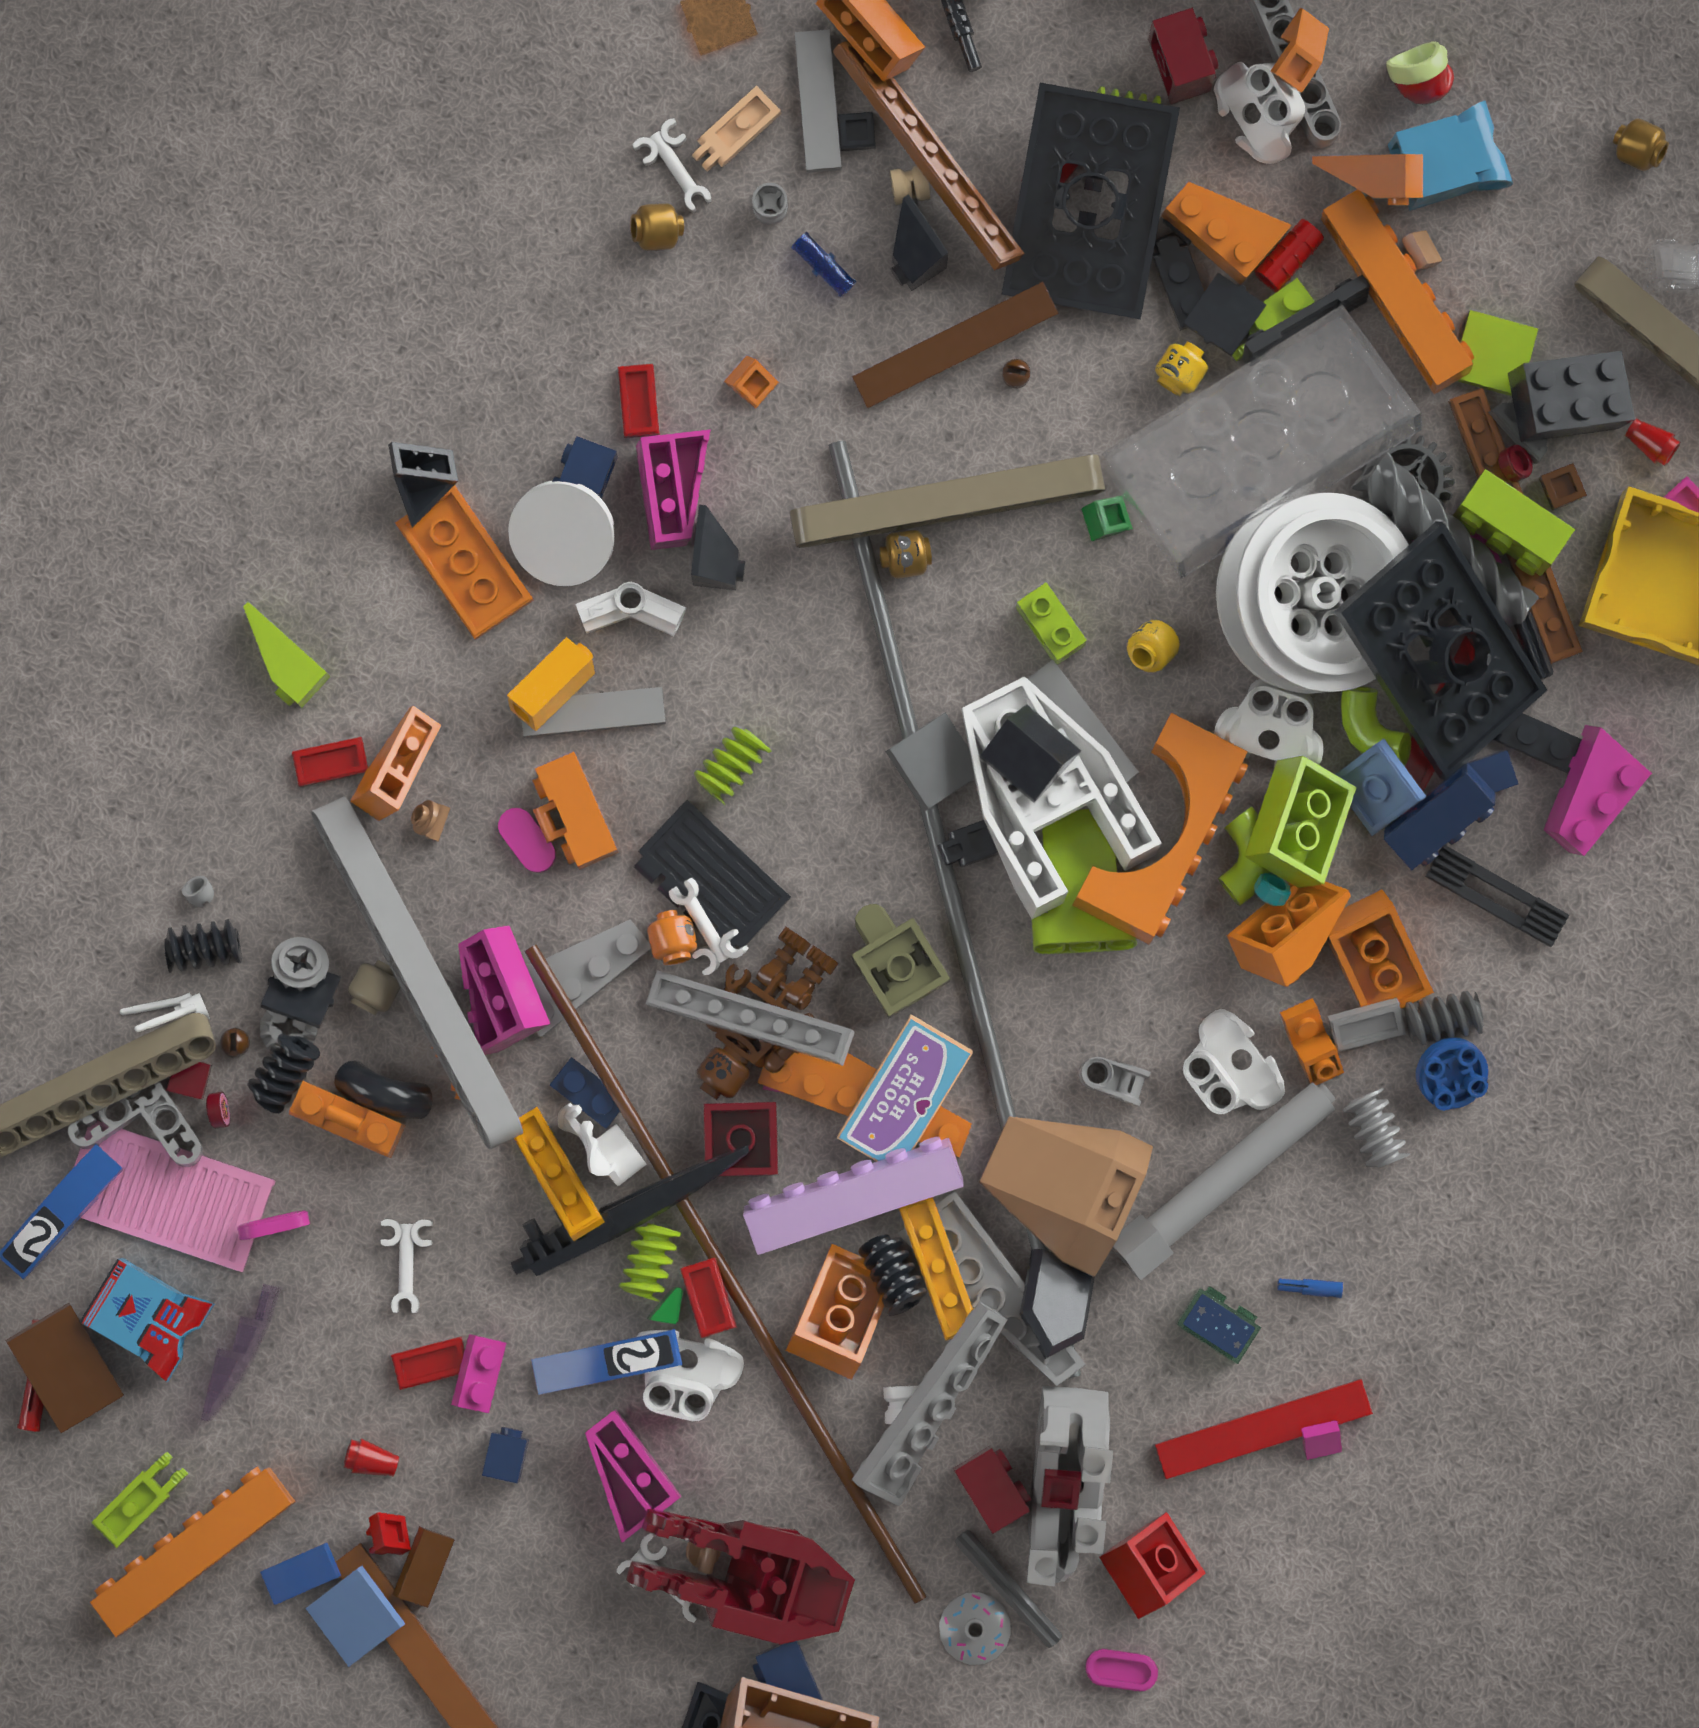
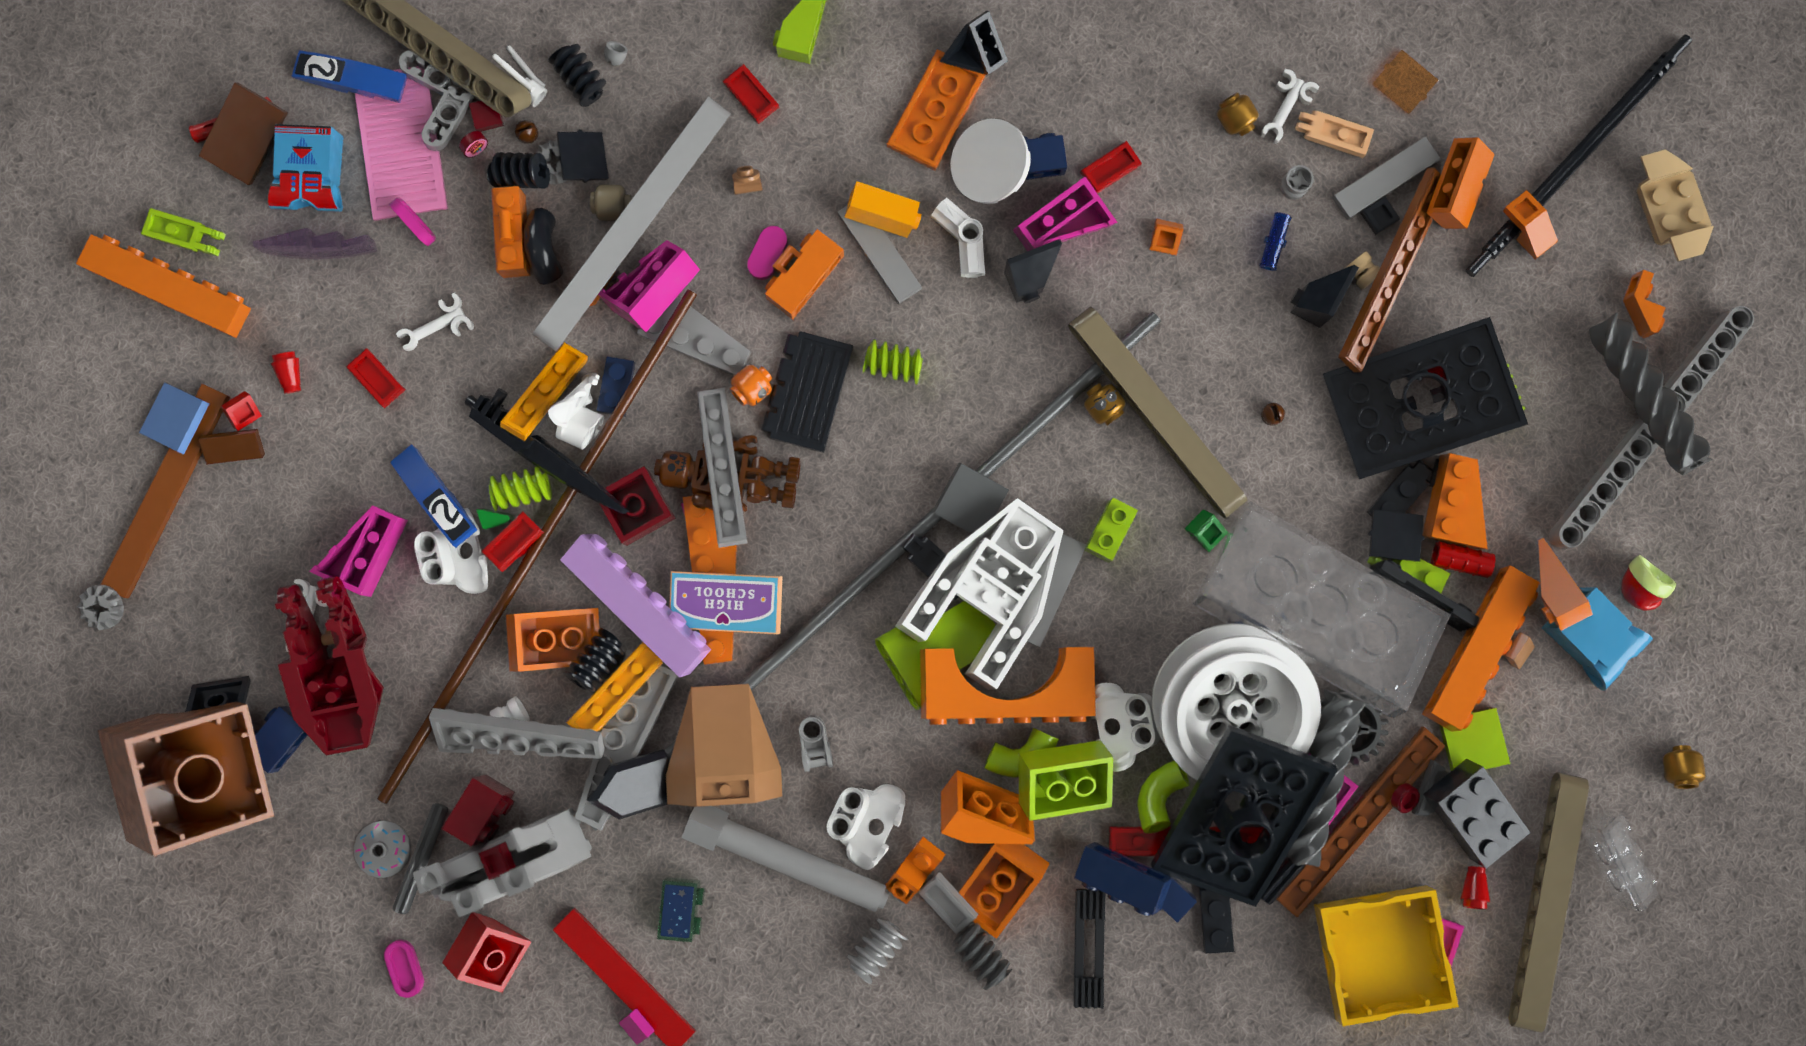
camera: 60 degrees right, 0 degrees up
(295, 950) = (609, 138): light grey gear -> none
(300, 1573) = (185, 366): blue tile -> none
(396, 765) = (771, 136): orange slope -> none
(478, 1373) = (383, 413): dark pink plate -> none
(506, 1455) = (335, 461): dark blue brick -> none
(718, 948) = (760, 420): white bar -> none
(896, 960) = (816, 547): olive brick -> none
(955, 345) = (1270, 360): reddish brown tile -> none
(1029, 752) = (1010, 561): black slope -> none
(1153, 646) = (1134, 609): yellow head -> none
(1181, 368) = (1340, 525): yellow head -> none
(1182, 55) = (1564, 408): dark red brick -> none
(1269, 137) = (1564, 462): white piece -> none
(1272, 889) = (1006, 785): teal tile -> none
(1304, 51) = (1617, 490): orange slope -> none
(1313, 1287) = (742, 964): blue piece -> none
(1382, 785) = (1122, 825): medium blue tile -> none
(1452, 1073) = (945, 983): blue tile -> none
(1513, 524) = (1362, 821): lime brick -> none
(1562, 486) = (1407, 841): reddish brown plate -> none
(1595, 791) = (1201, 981): dark pink wedge -> none

